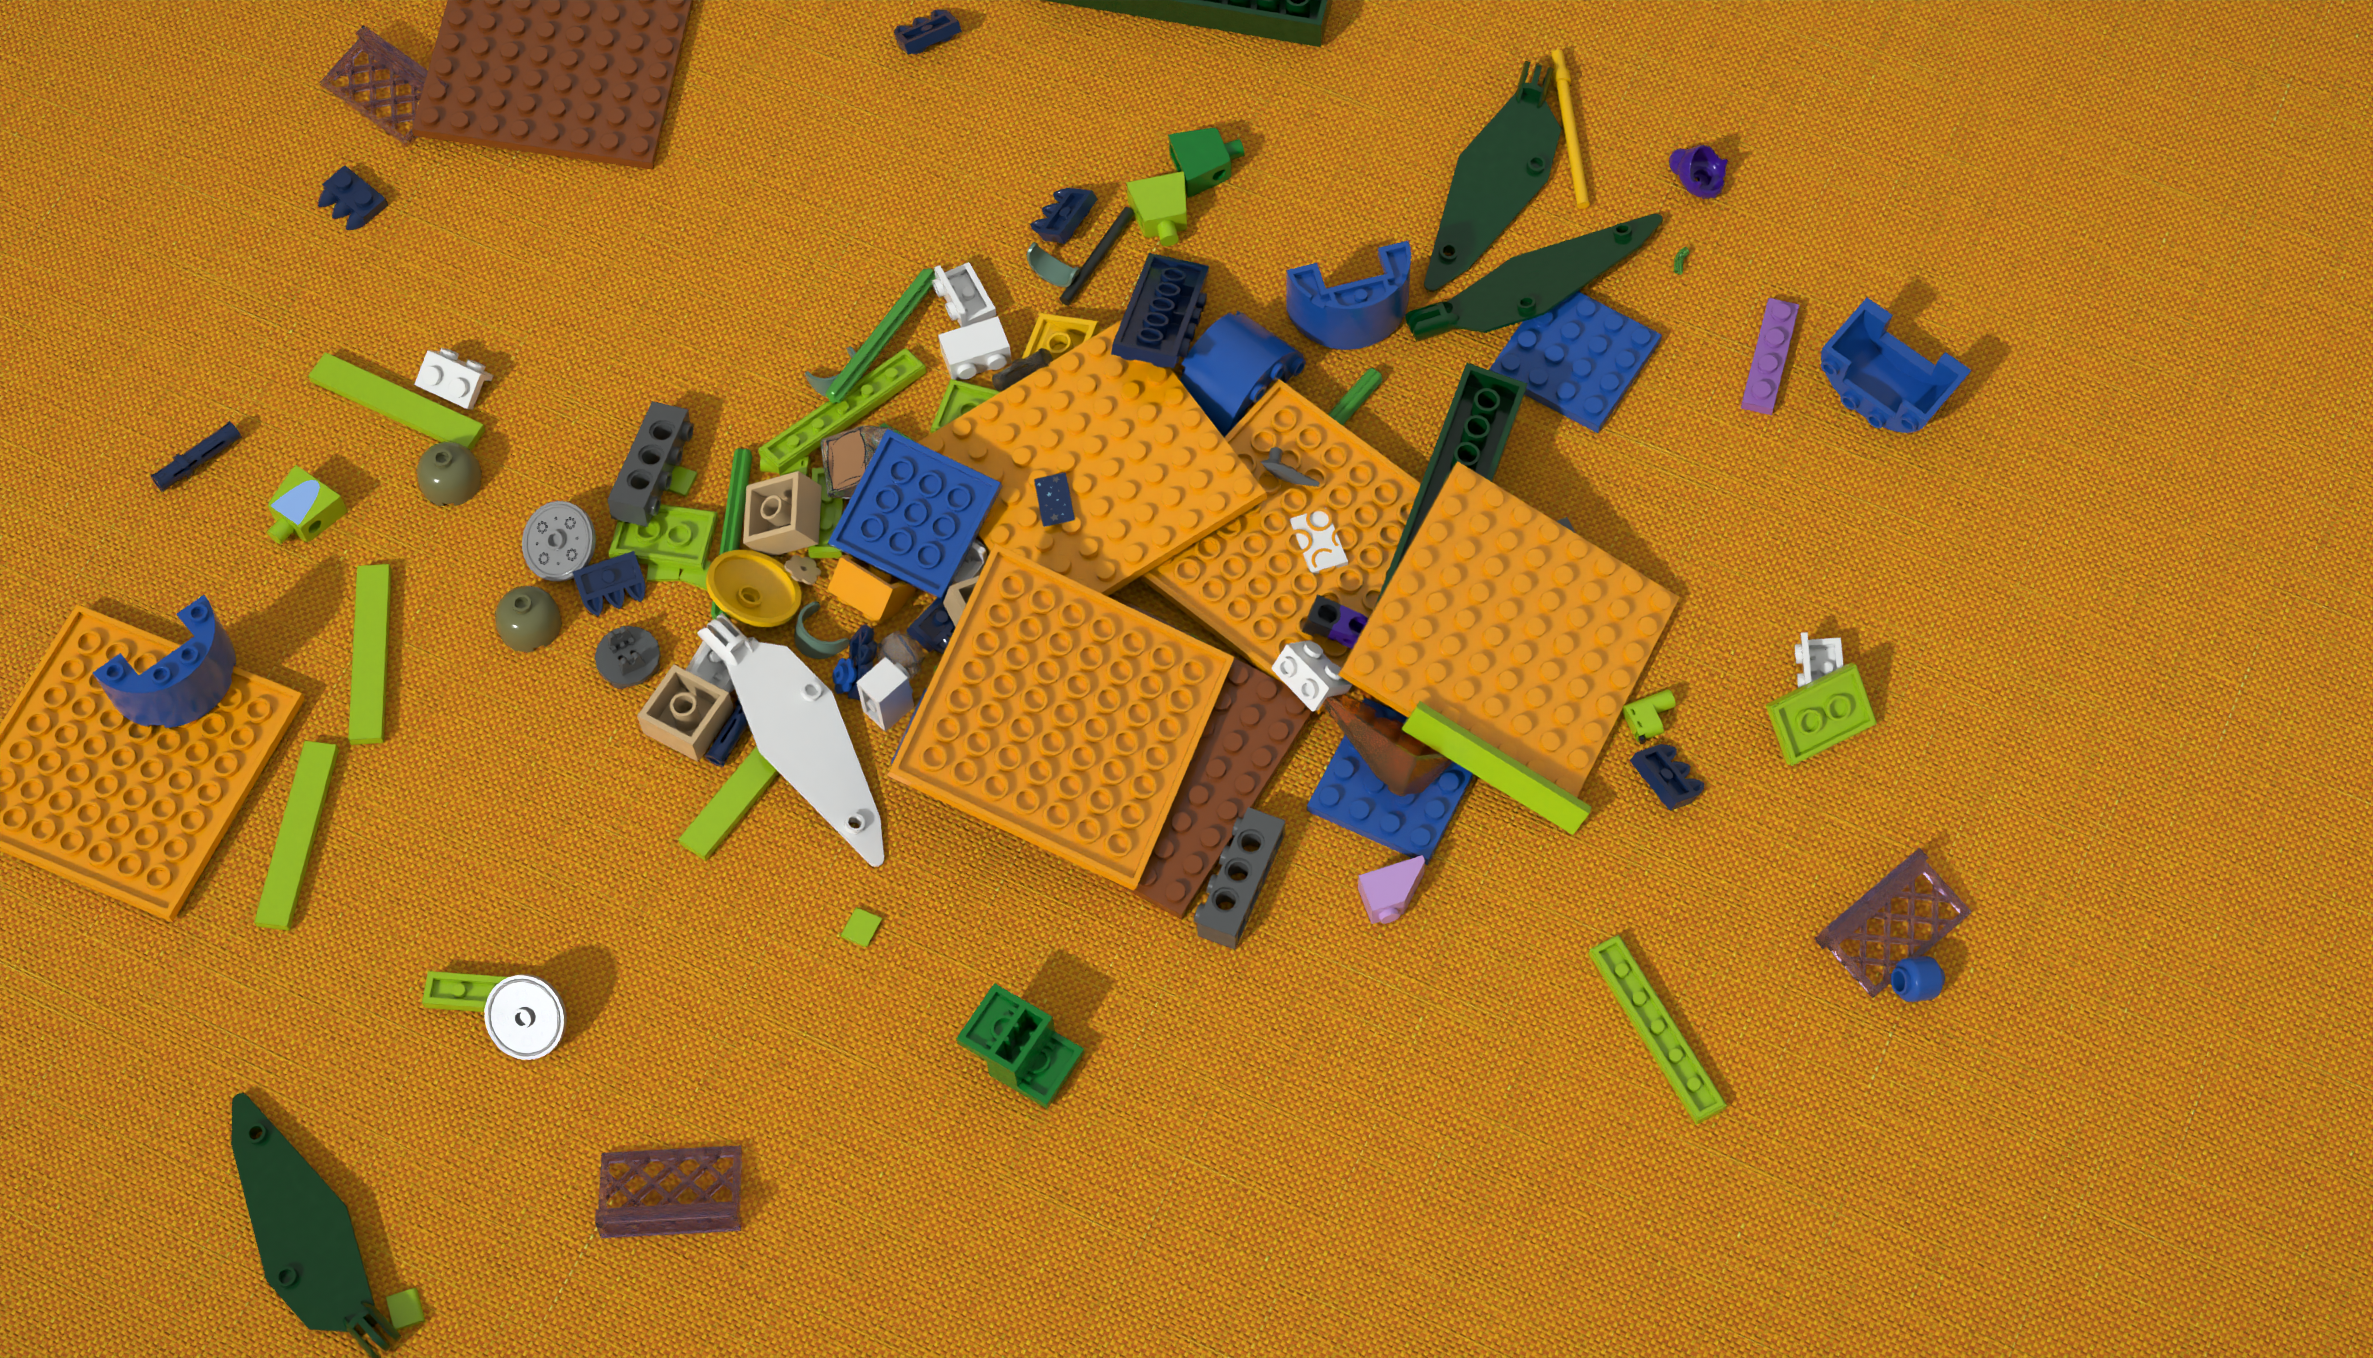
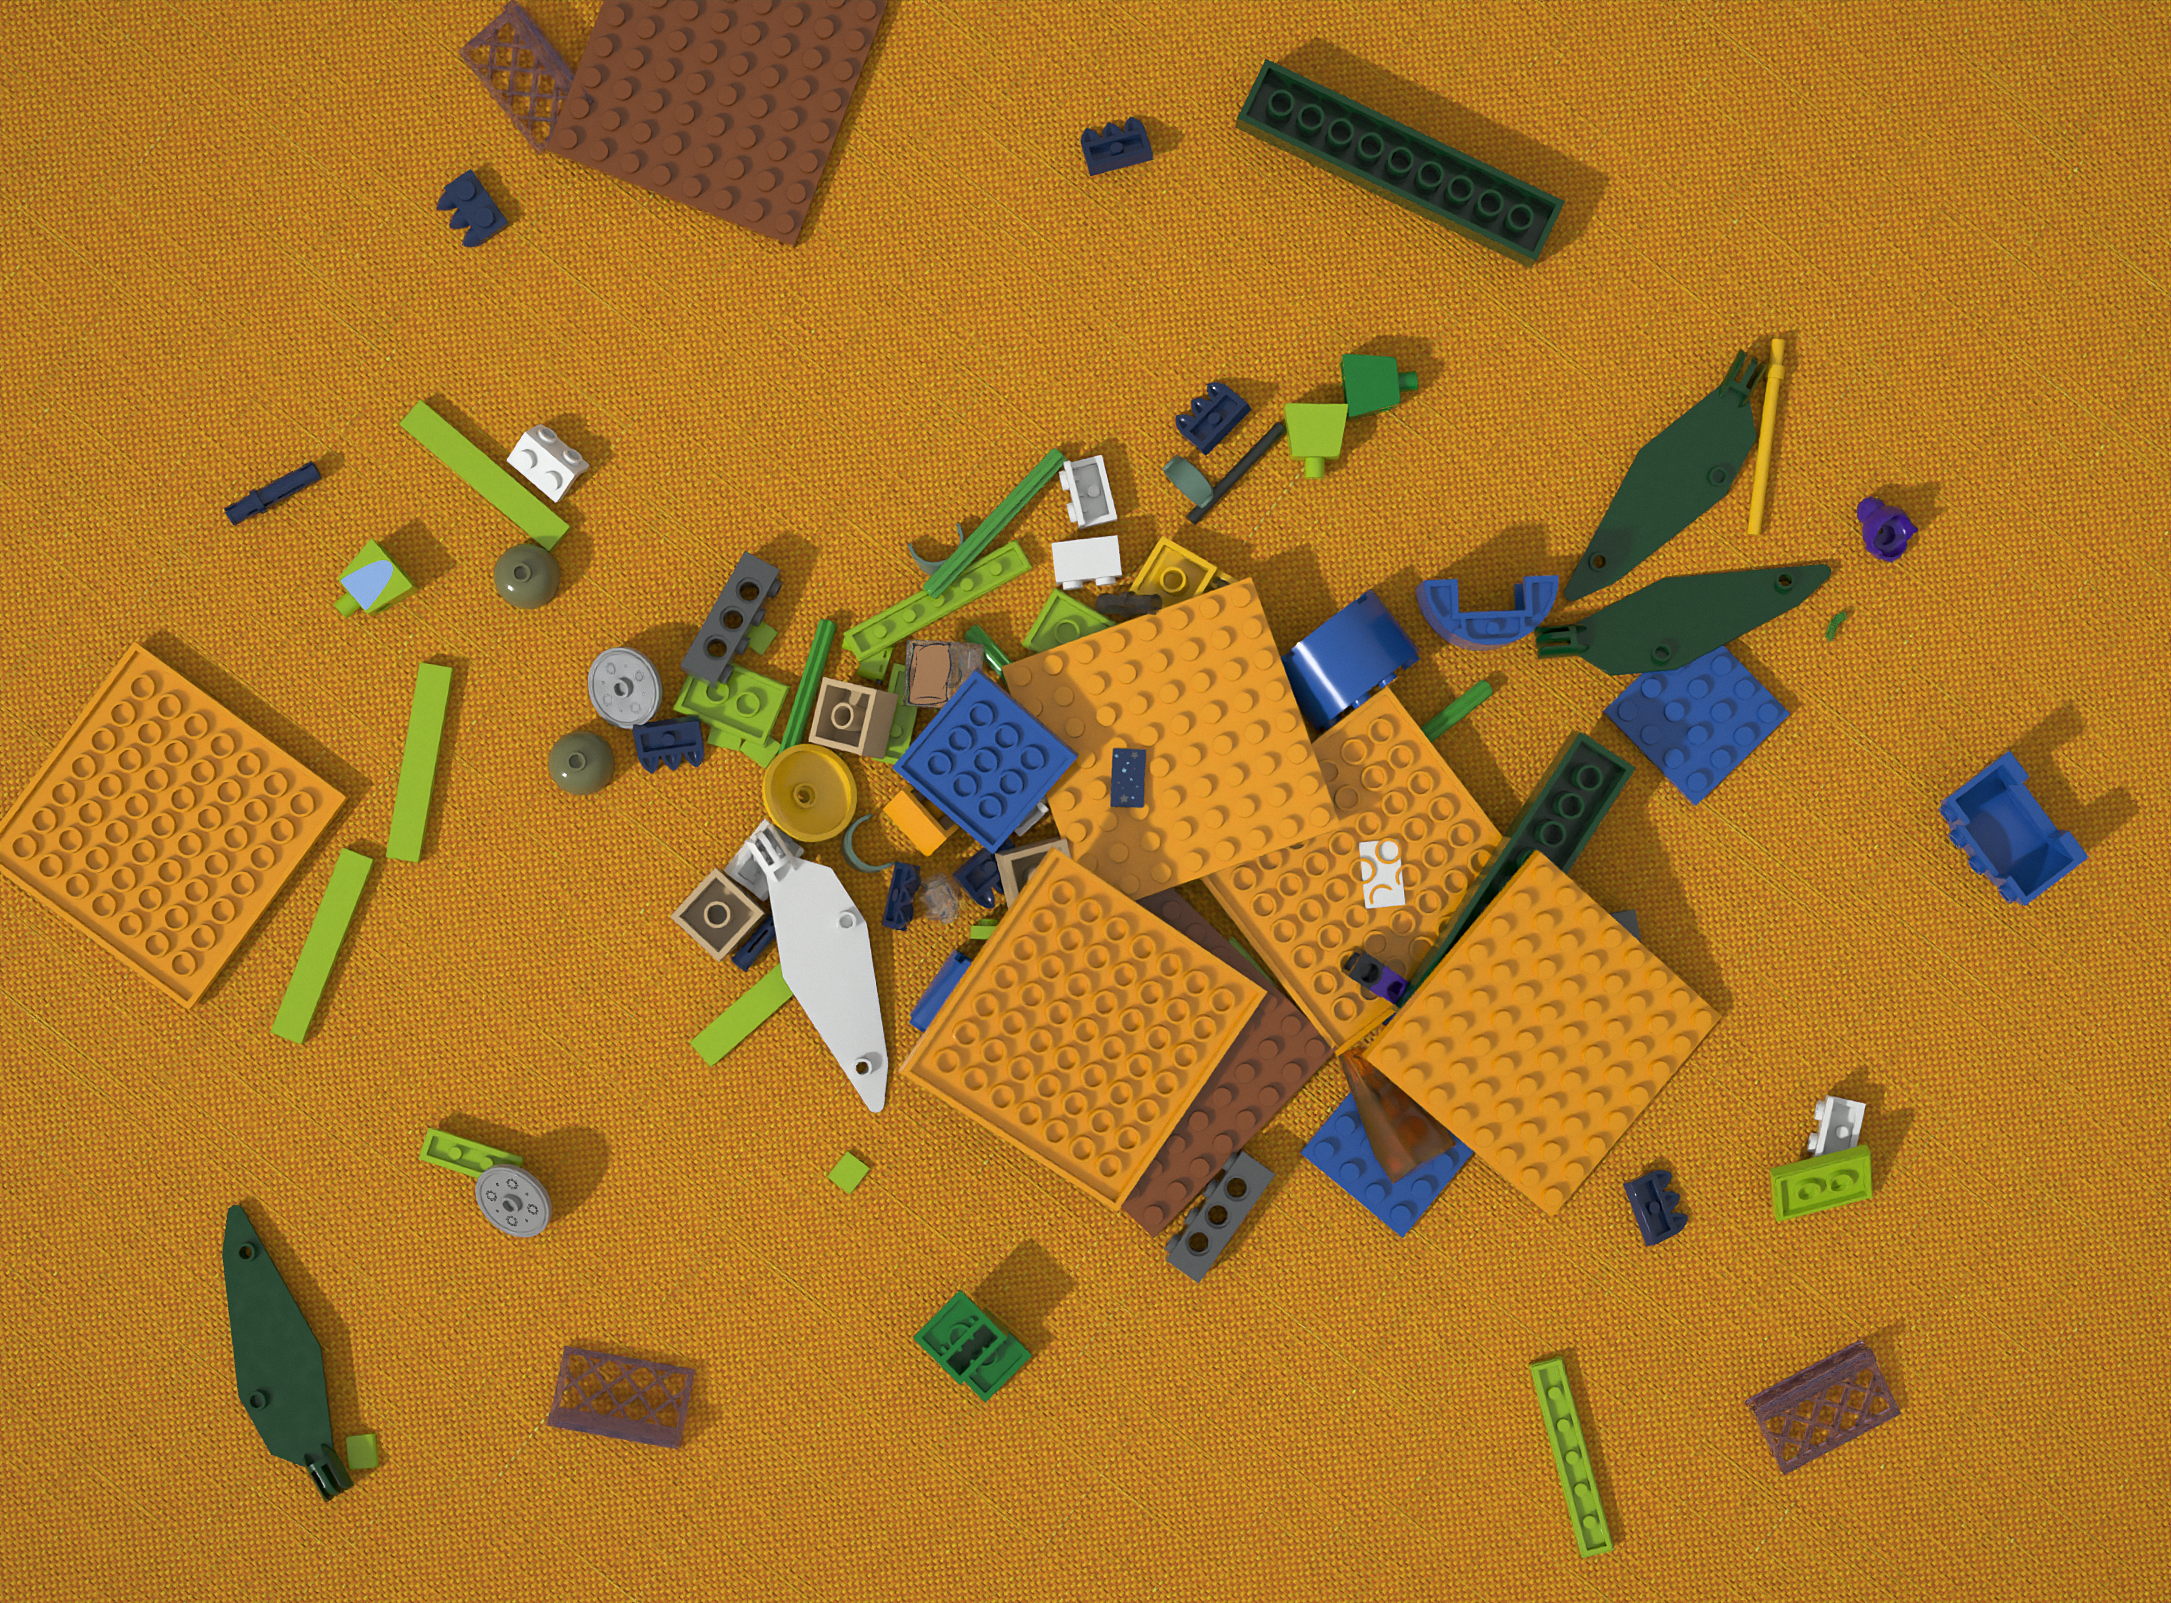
camera: 10 degrees right, 25 degrees up
(182, 683) = (232, 779): blue cylinder -> none
(630, 669) = (670, 813): dark grey plate -> none
(803, 569) = (870, 774): tan plant -> none
(844, 675) = (881, 904): blue plant -> none
(886, 693) = (919, 943): white brick -> none
(1162, 312) = (1285, 582): dark blue plate -> none
(1286, 472) = (1367, 797): dark grey bar -> none
(1309, 673) = (1337, 1027): white bracket -> none
(1390, 889) = (1359, 1262): lavender slope -> none
(1496, 768) = (1491, 1172): lime tile -> none
(1643, 714) = (1649, 1134): lime piece -> none
(1770, 356) = (1892, 762): medium lavender plate -> none
(1917, 979) = (1828, 1474): blue head -> none

